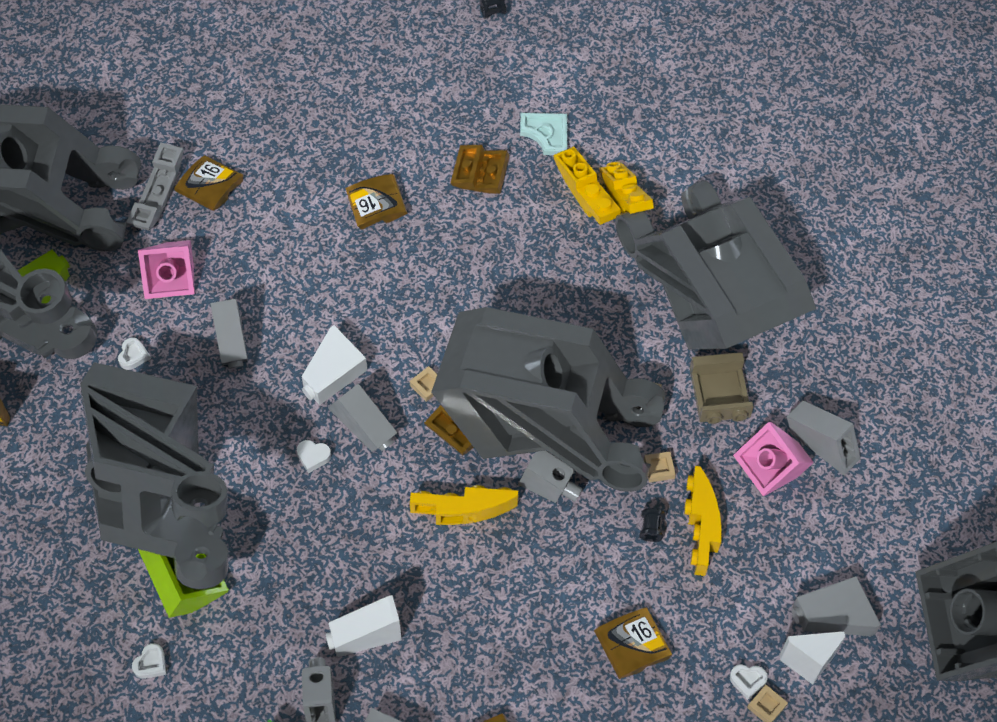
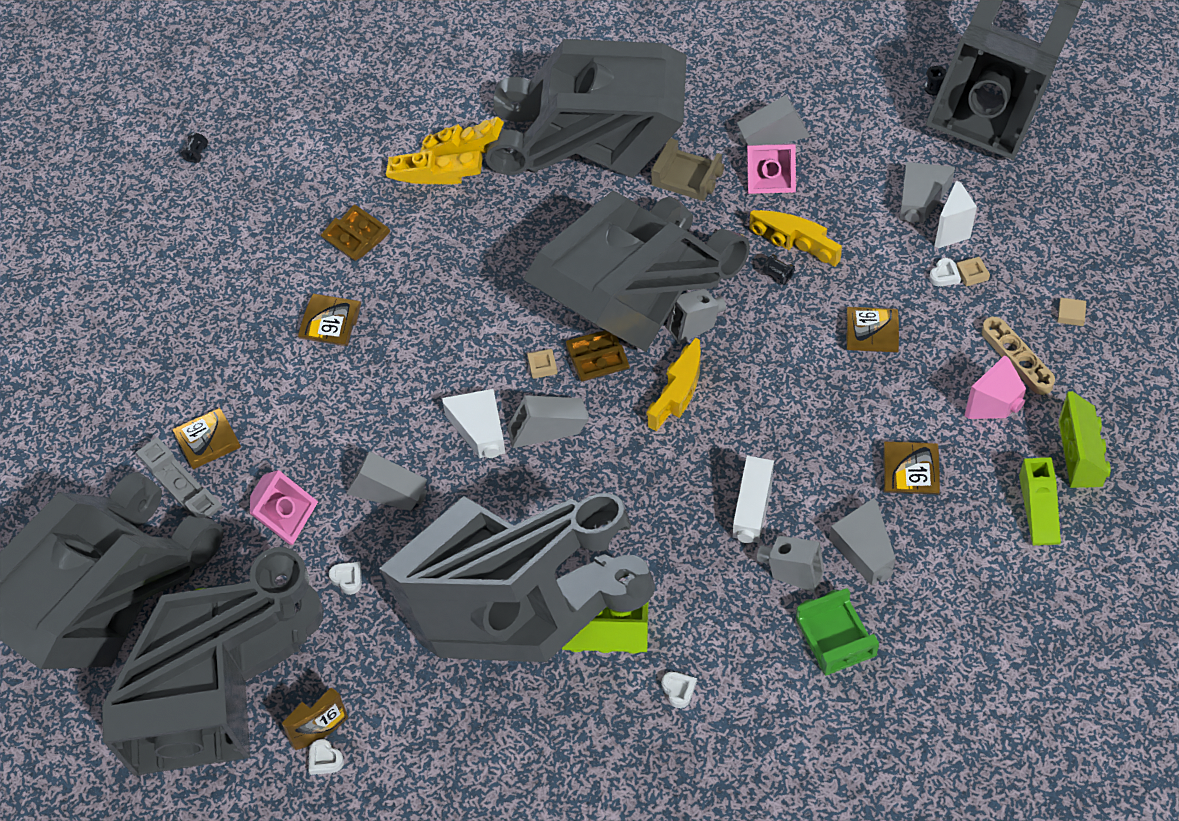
camera: 55 degrees left, 5 degrees down
(313, 454) = (554, 477): white tile -> none
(546, 129) = (354, 170): light aqua tile -> none

